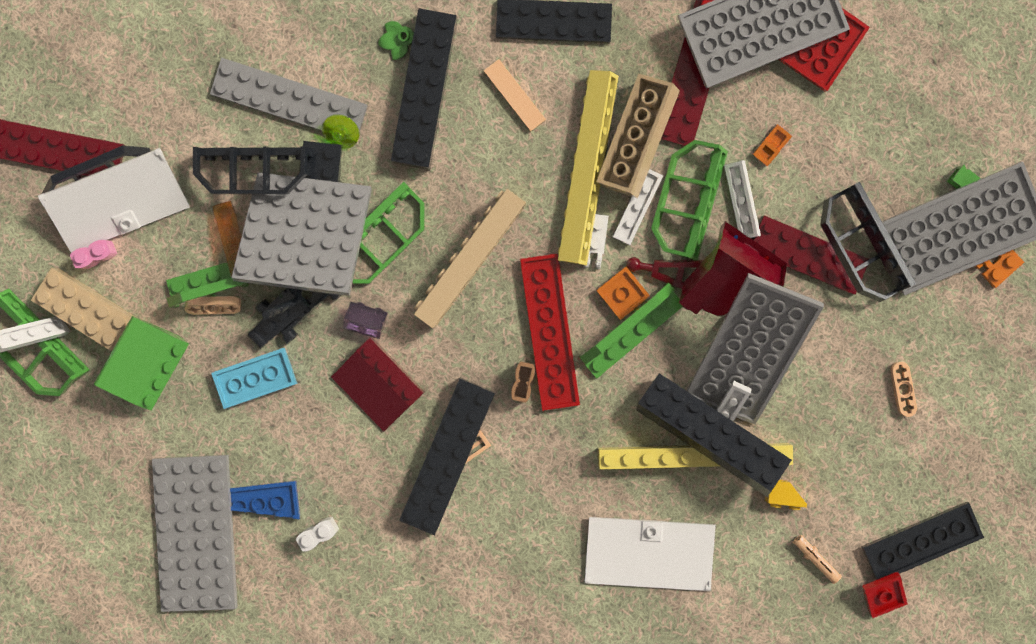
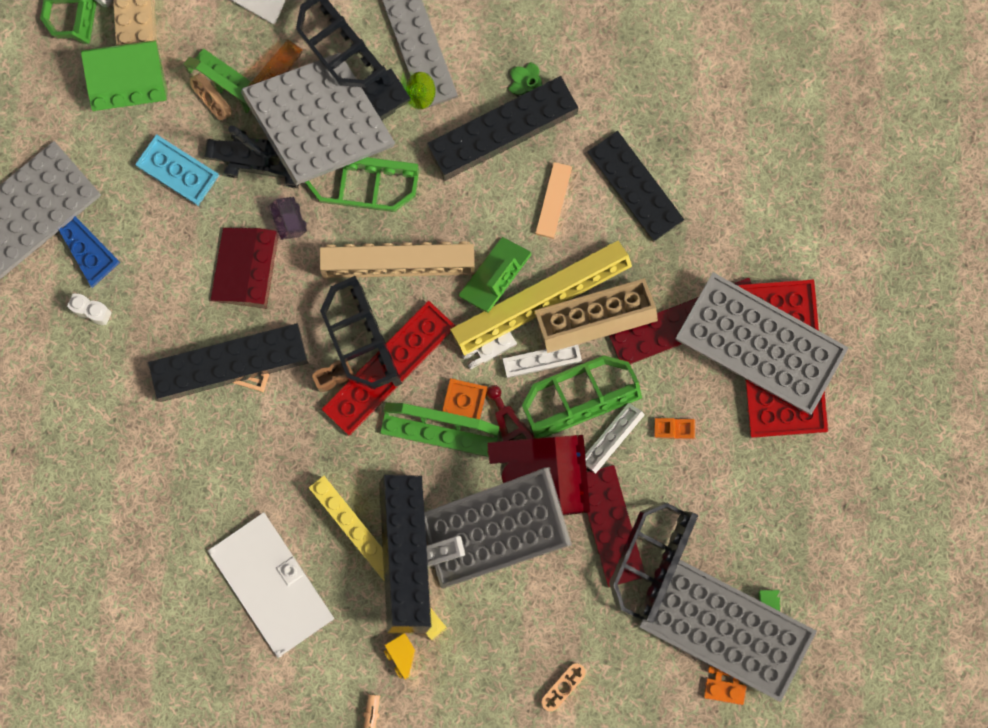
camera: 60 degrees right, 10 degrees down
(506, 320) = (371, 325): none -> black plate
(540, 190) = (495, 274): none -> bright green bracket

